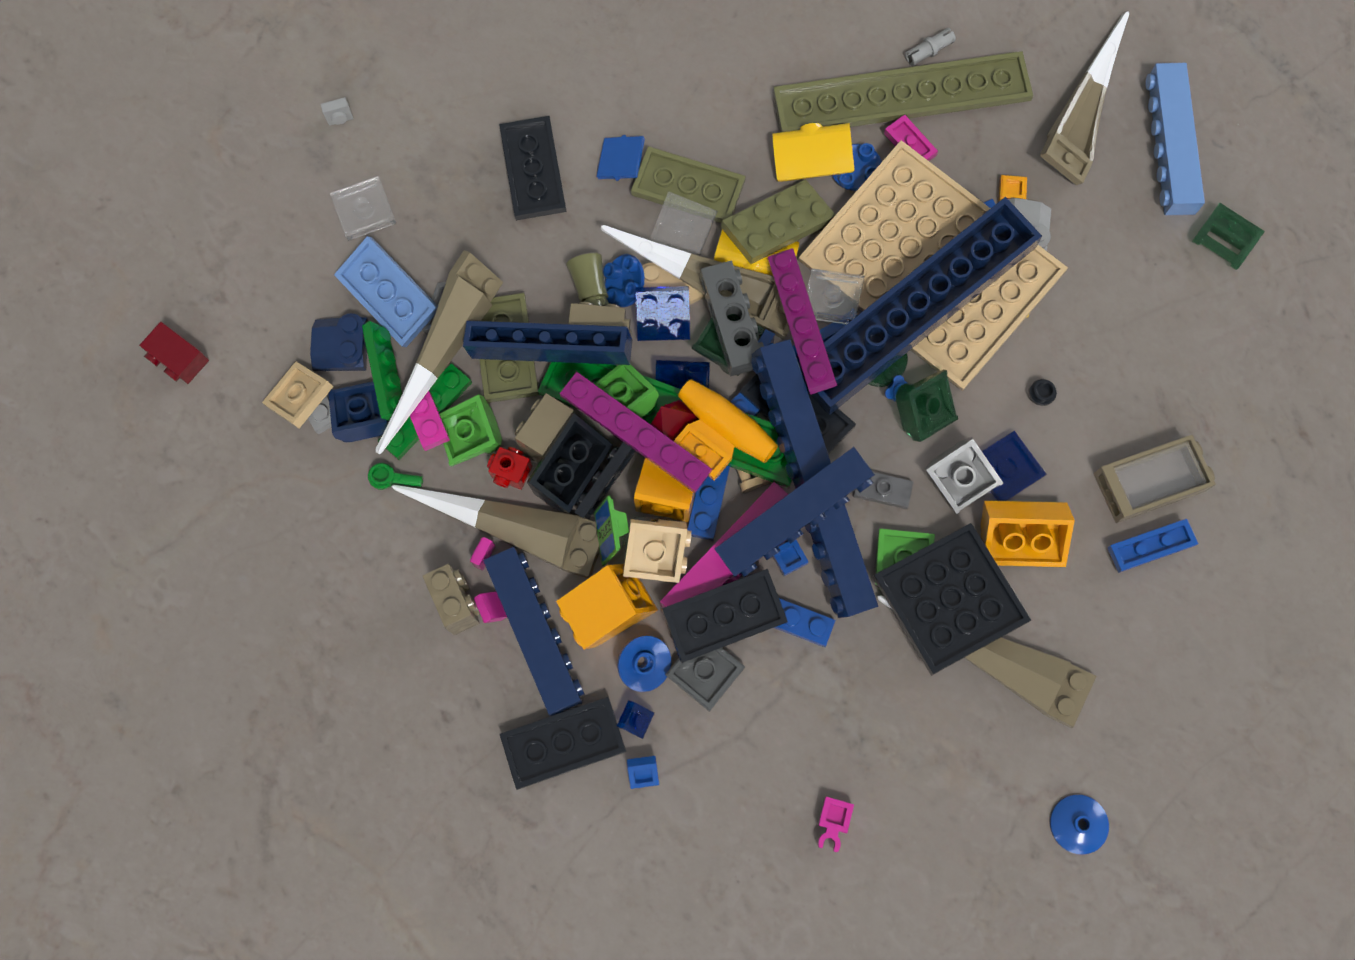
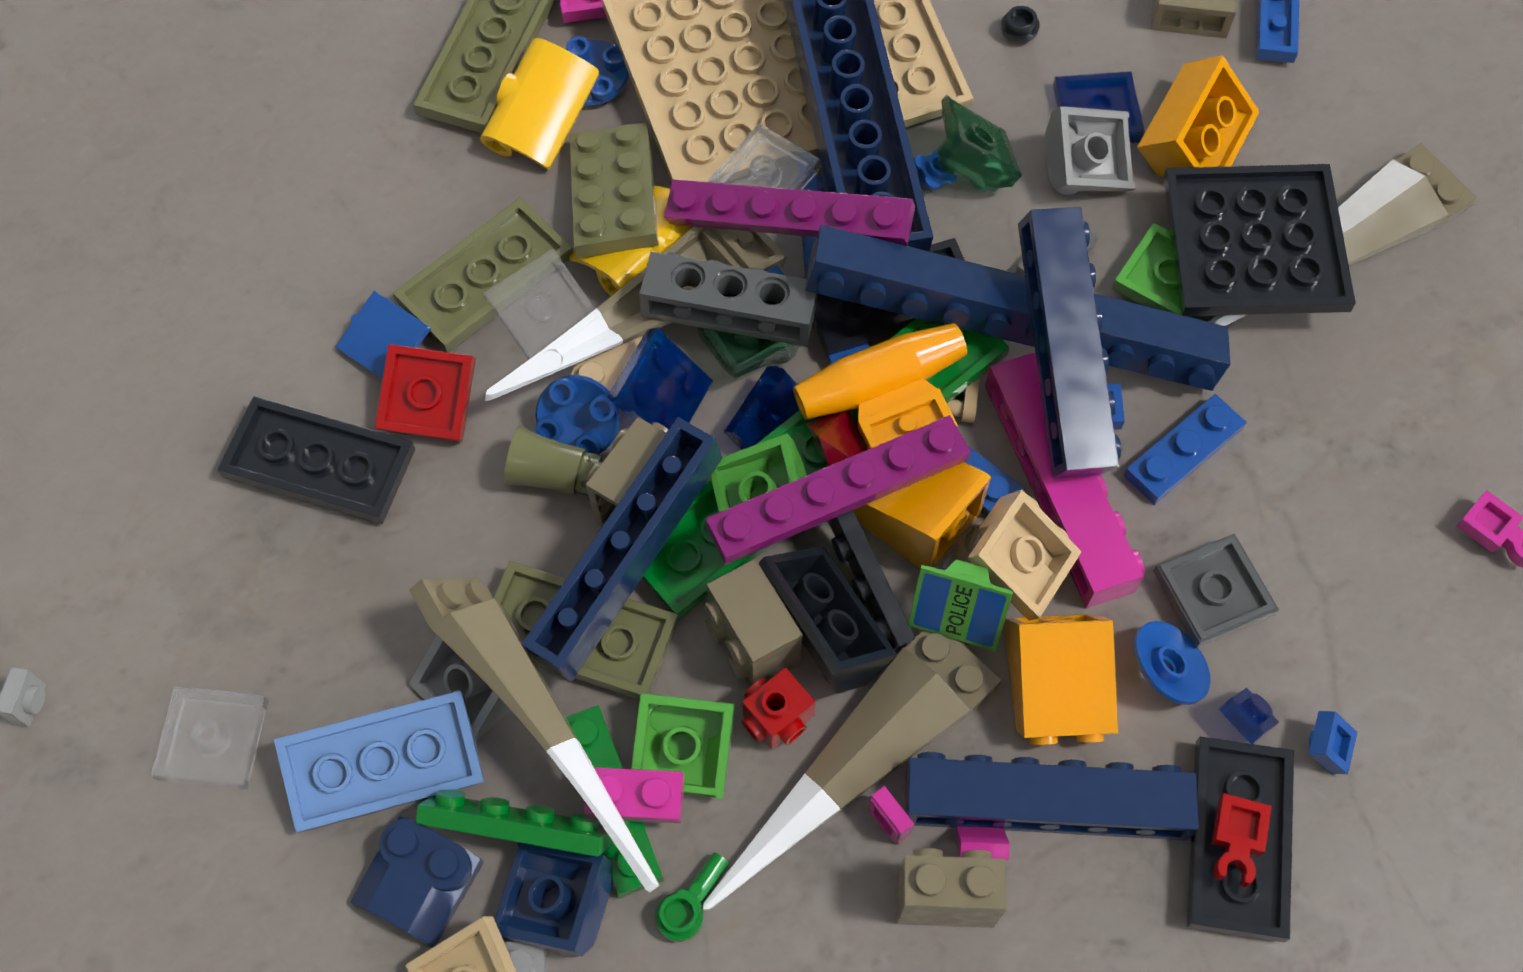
camera: 65 degrees left, 10 degrees down
(559, 737) = (1243, 831): none -> red plate
(596, 197) = (425, 393): none -> red plate
(724, 615) = (1159, 518): black plate -> none

